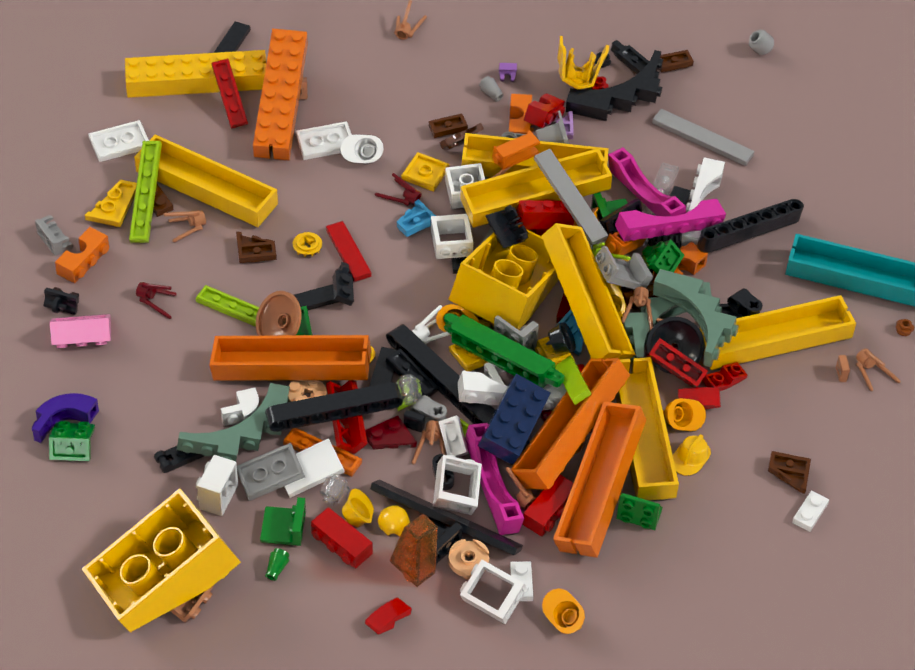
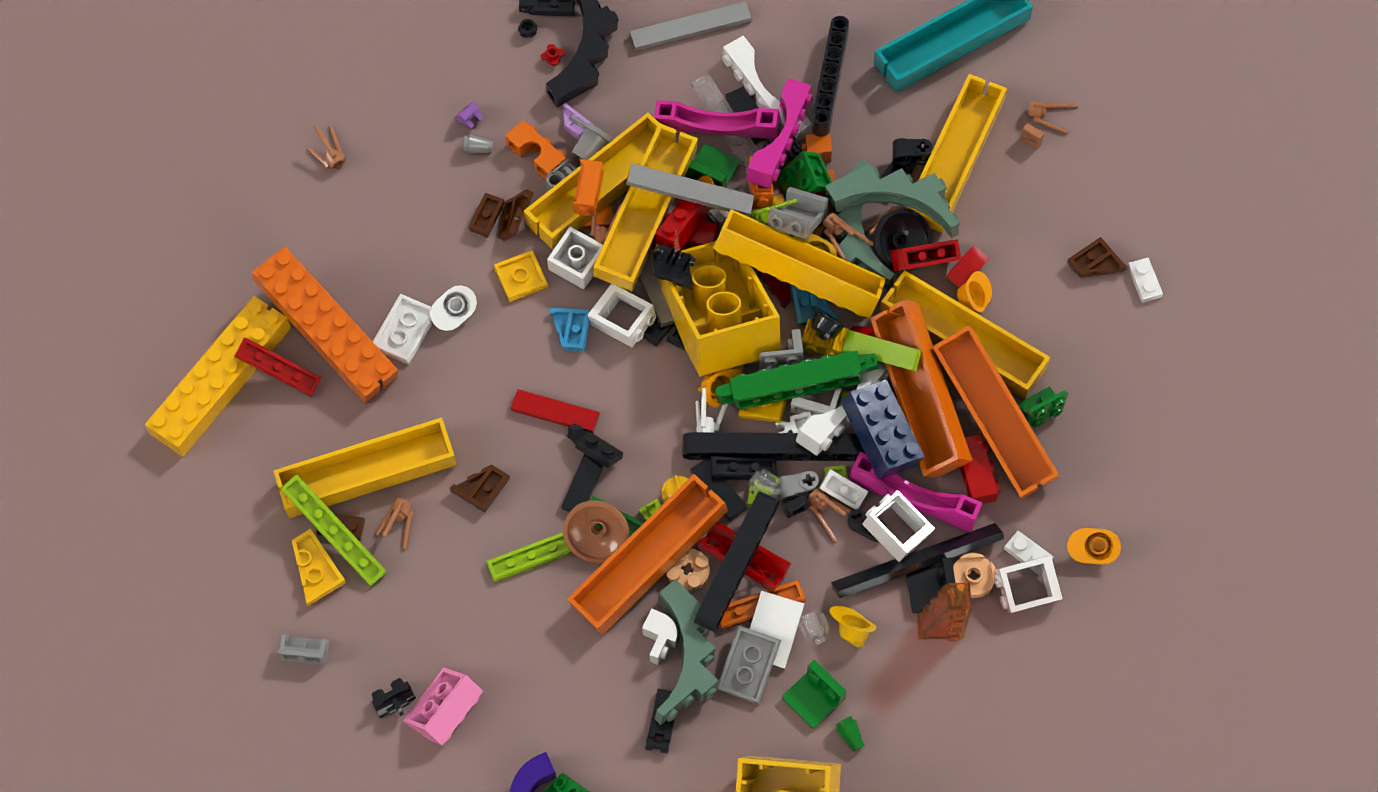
camera: 45 degrees left, 15 degrees up
(73, 265) = (350, 622): orange arch -> none
(118, 140) = (235, 505): white tile -> none
(147, 291) = (449, 616): dark red plant -> none
(217, 485) = (733, 720): white brick -> none
(233, 38) = (202, 313): black tile -> none
(312, 240) = (512, 431): yellow gear -> none
(341, 538) = (869, 660): red brick -> none
(386, 615) = (979, 684): red slope -> none
(390, 435) = (791, 535): dark red wing -> none
(393, 520) = (884, 604): yellow hair -> none
(410, 193) = (539, 309): dark red plant -> none
(525, 496) = (951, 481): nougat plant -> none
(544, 111) = (554, 124): red arch -> none
(577, 76) = (537, 64): yellow piece -> none
(609, 221) = (731, 164): black tile -> none
(691, 455) = (1016, 319): yellow piece -> none
(725, 378) = (966, 220): red slope -> none
(904, 327) = (1029, 58): dark orange plate -> none

